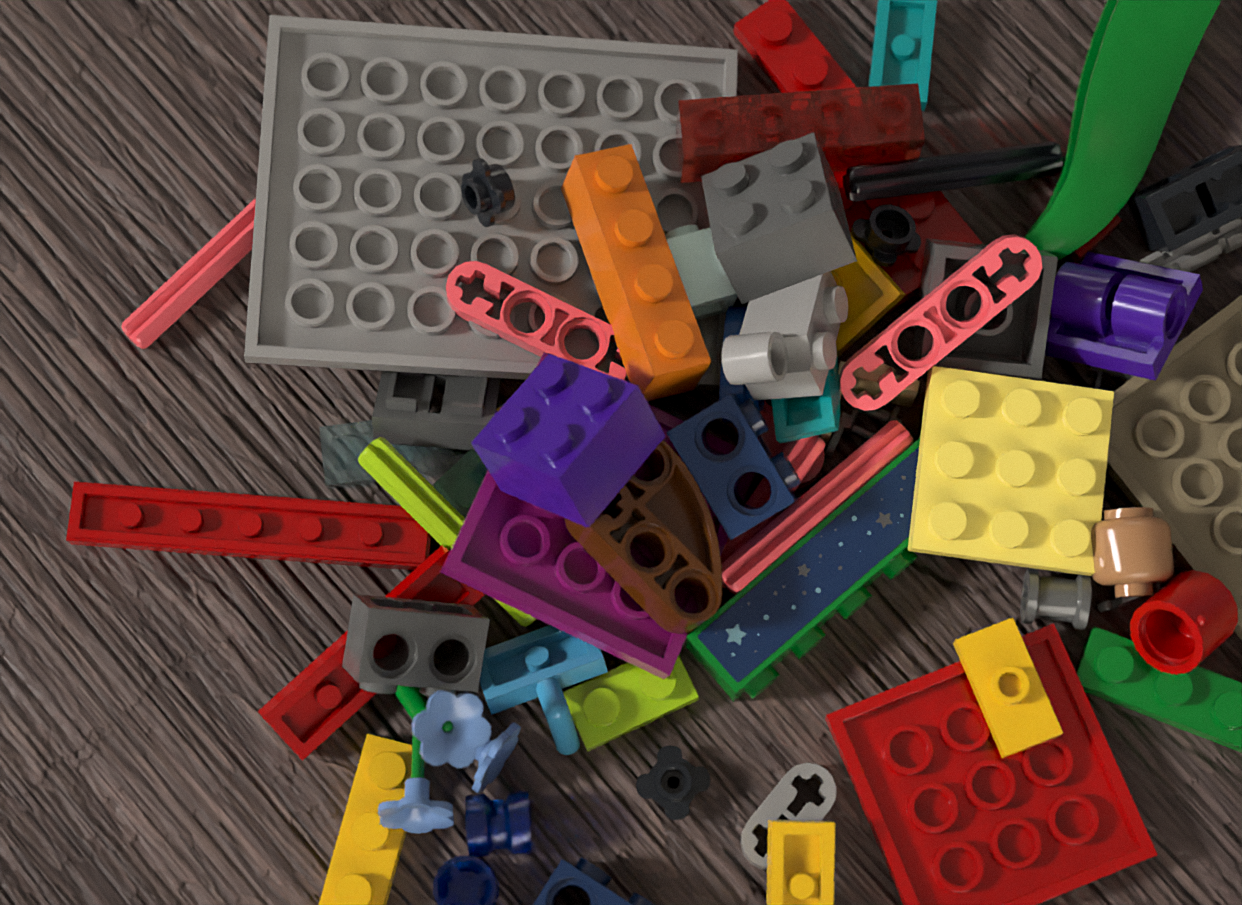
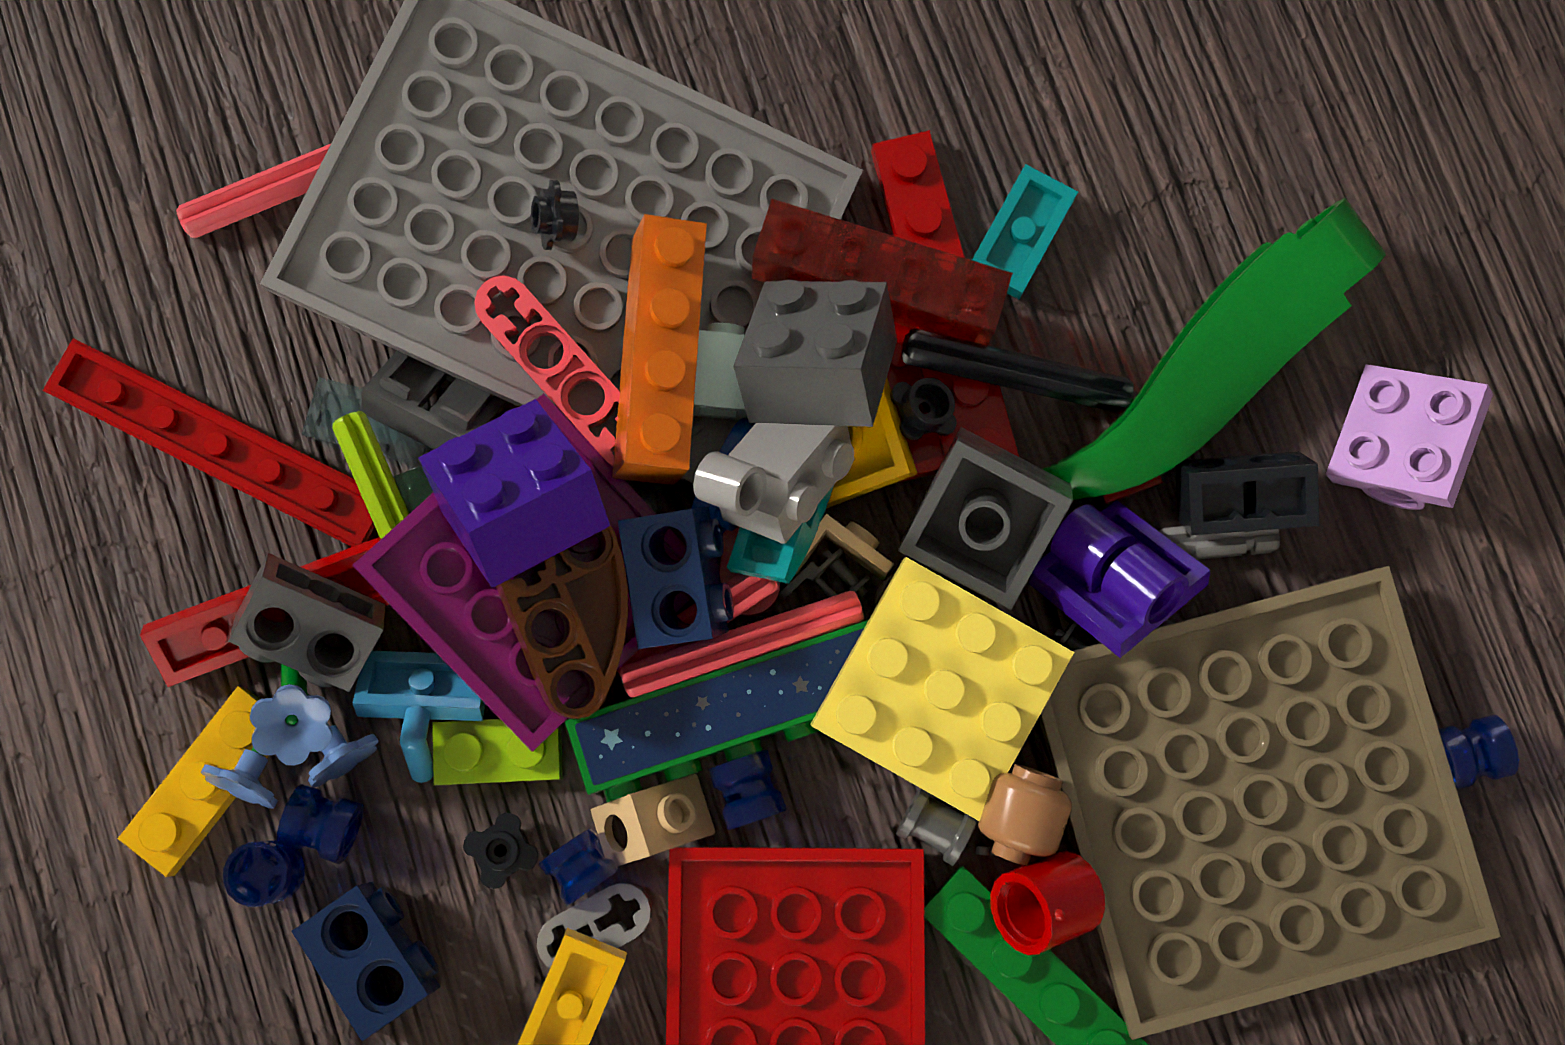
camera: 20 degrees right, 5 degrees up
(751, 766) = (578, 866): none -> clear blue wheel
(804, 696) = (654, 820): none -> tan bracket
(873, 635) = (747, 789): none -> clear blue wheel
(946, 330) = (932, 525): coral beam -> none
(1007, 687) = (850, 896): yellow plate -> none

